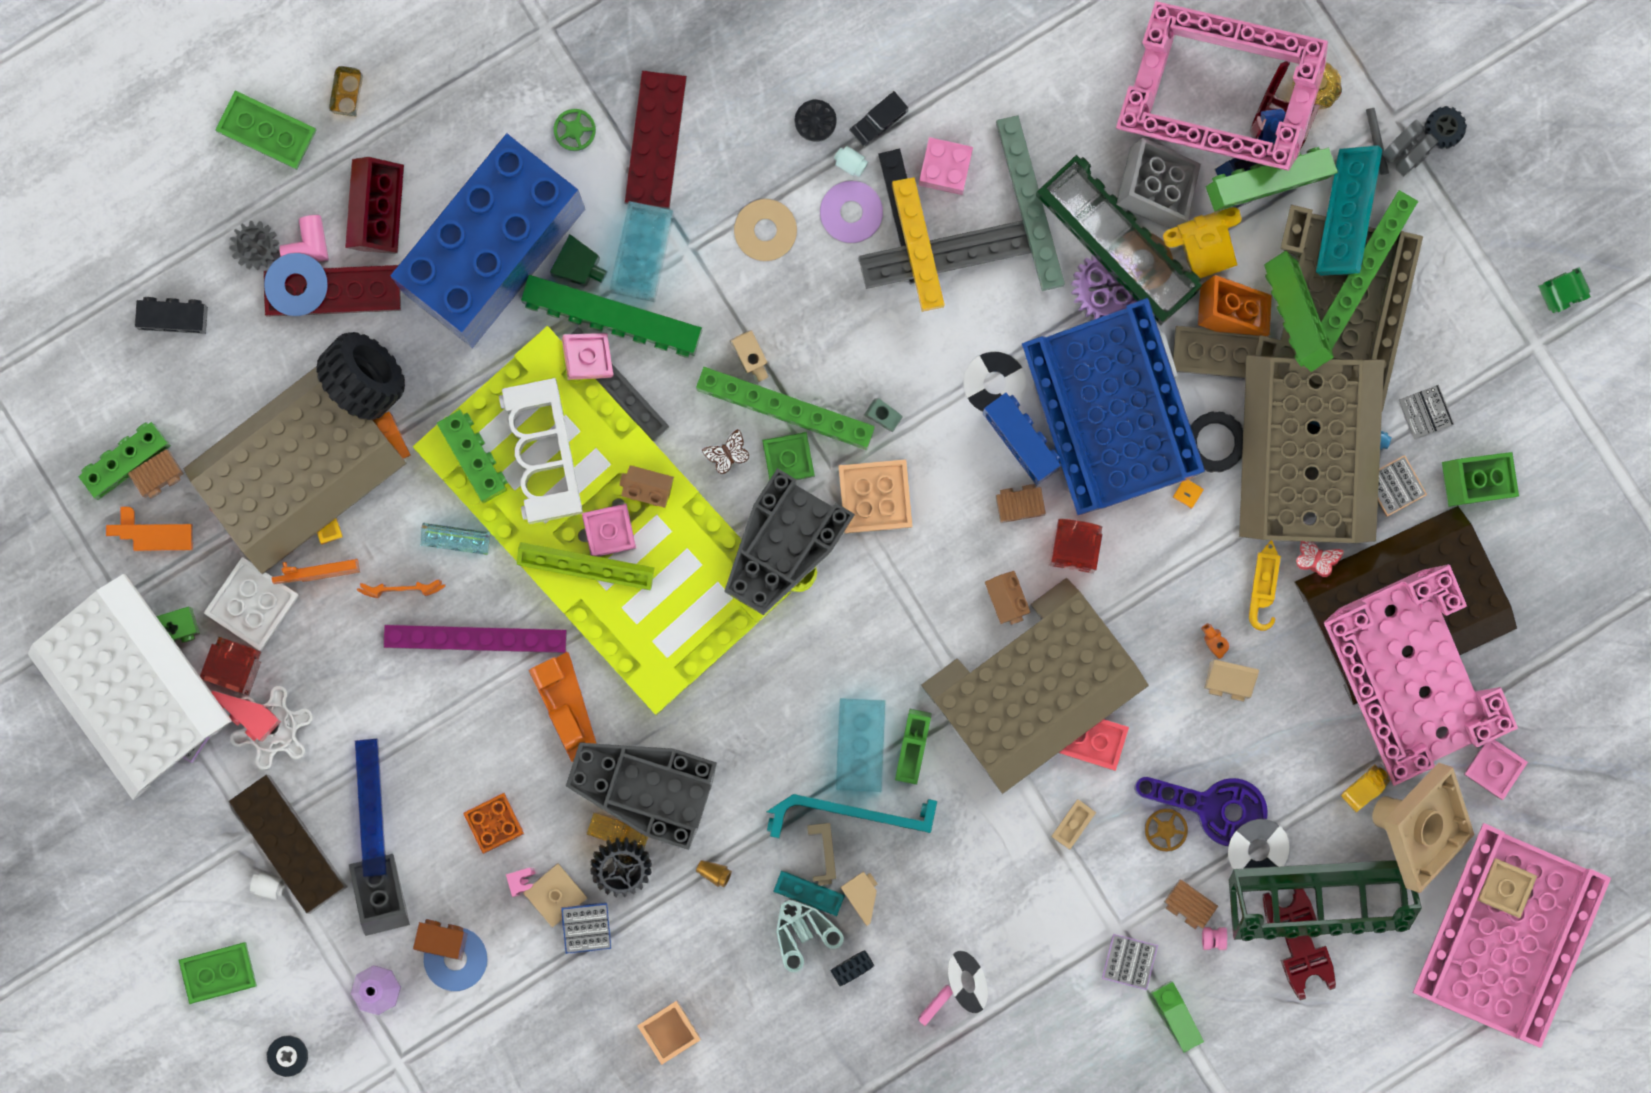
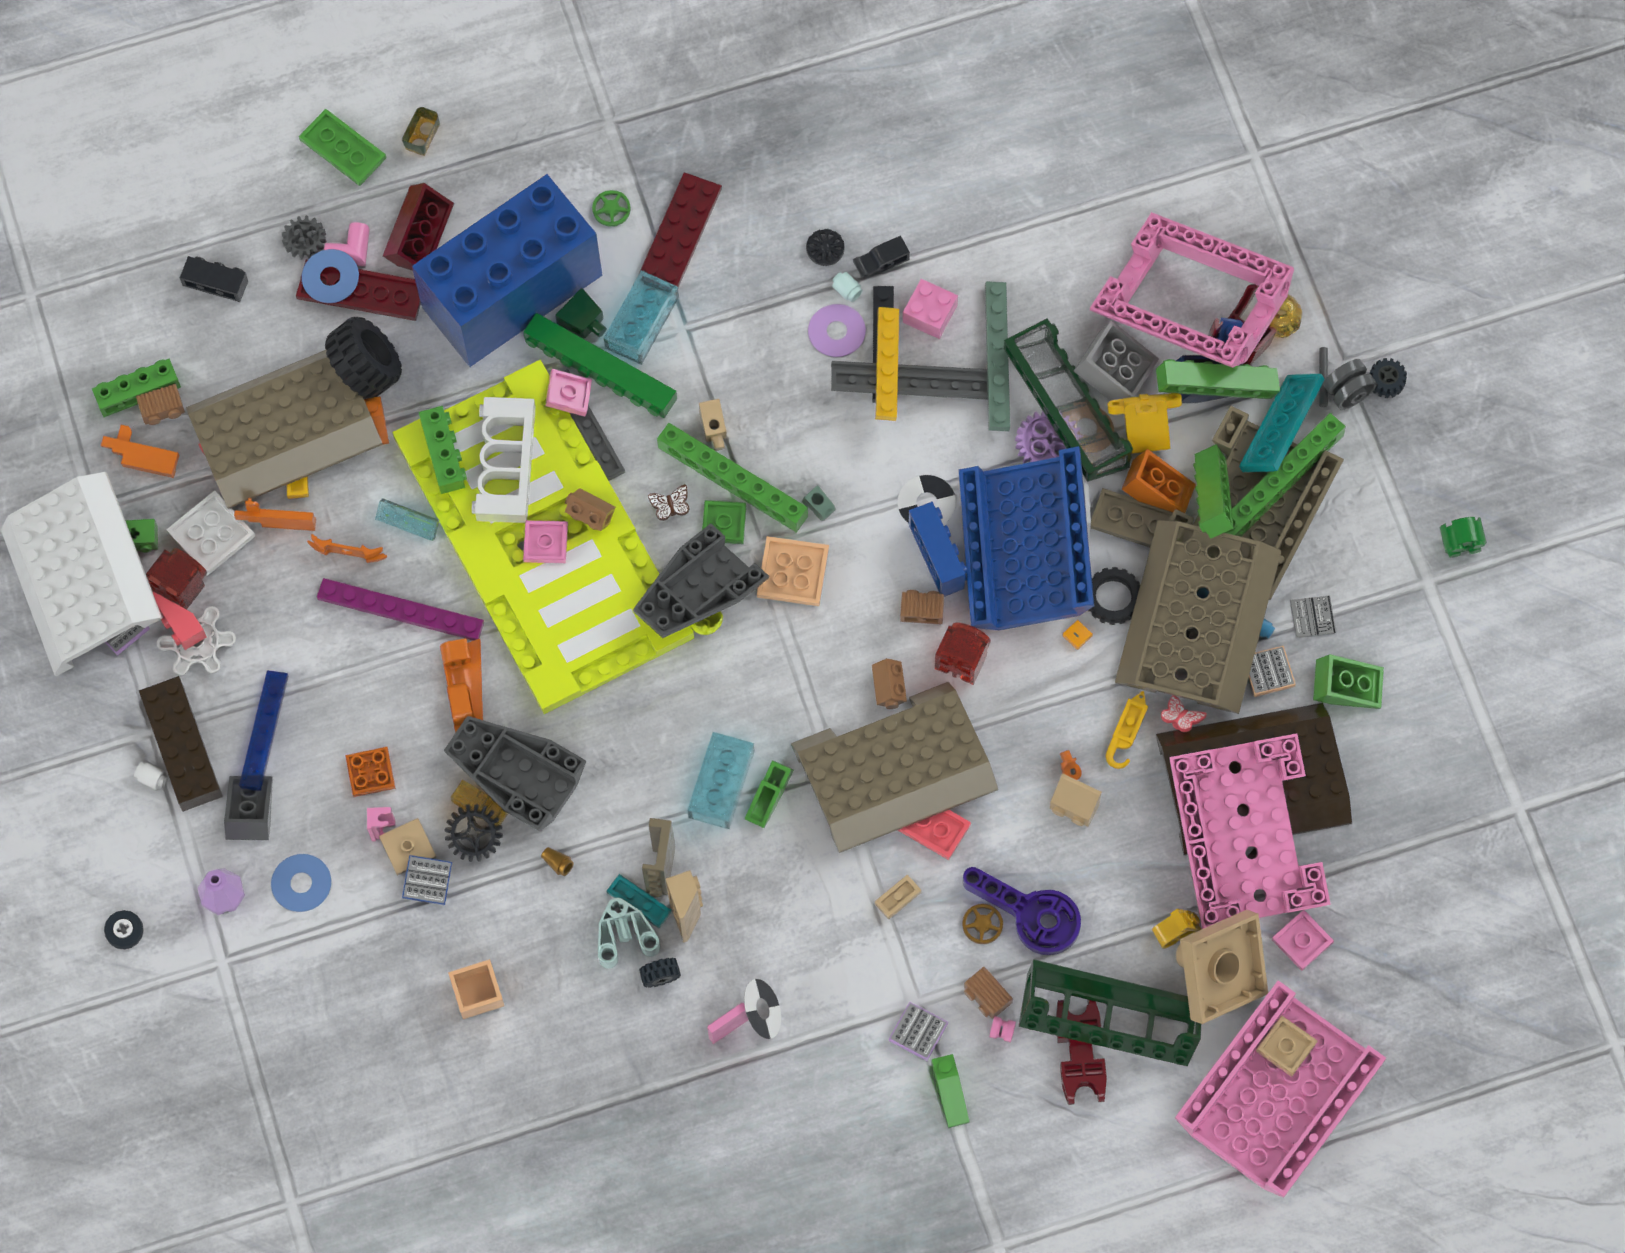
camera: 15 degrees right, 15 degrees down
(217, 973) = (83, 842): bright green tile -> none
(439, 940) = (291, 857): dark orange brick -> none
(585, 566) = (515, 565): lime plate -> none
(775, 824) = (641, 812): teal panel -> none
(784, 236) = (763, 344): tan sticker -> none
(1254, 830) = (1066, 940): sticker -> none

